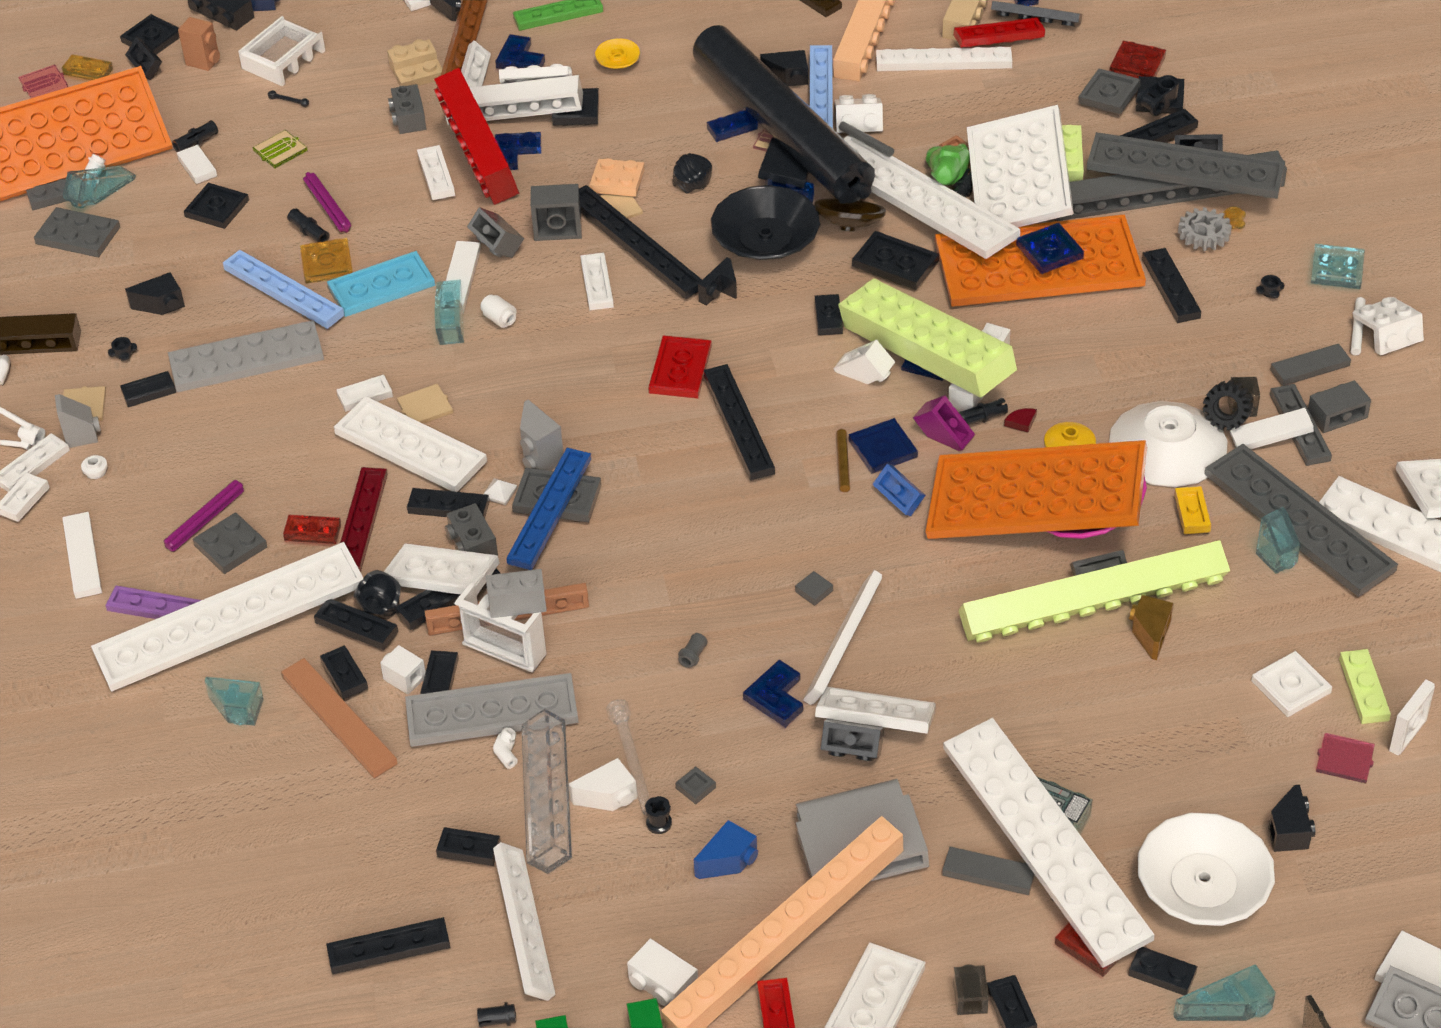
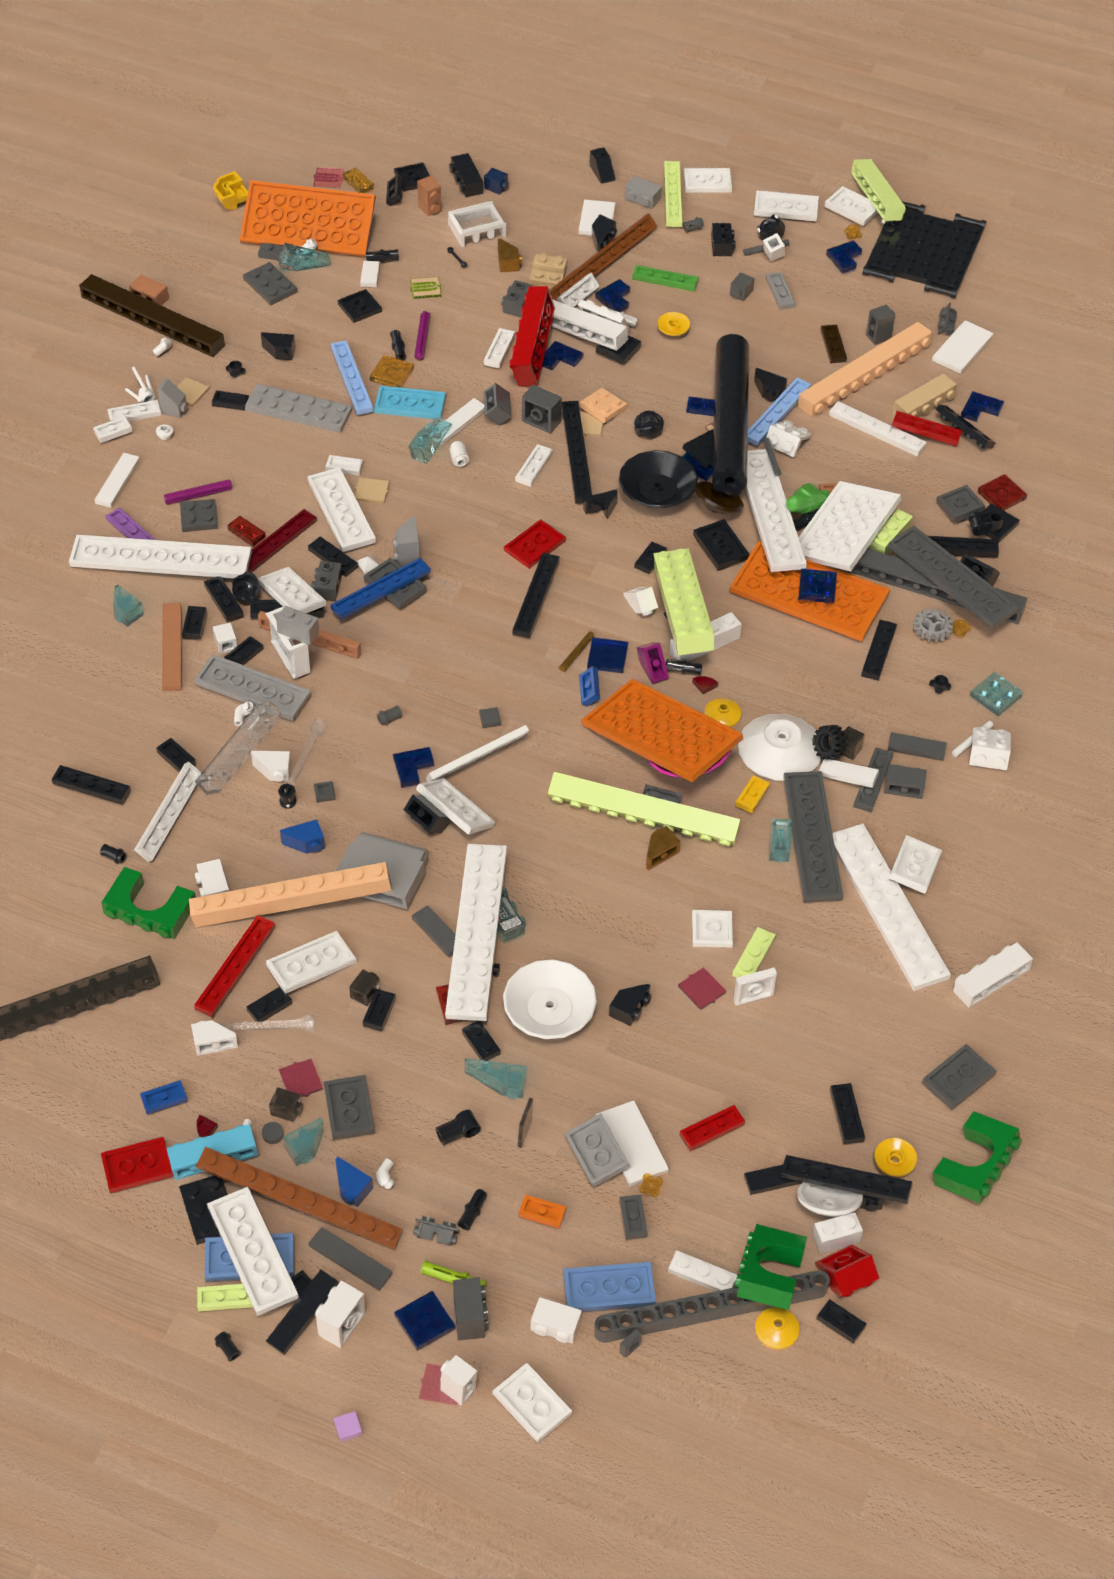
camera: 30 degrees right, 5 degrees up
(353, 69) = (508, 257): none -> pearl gold slope

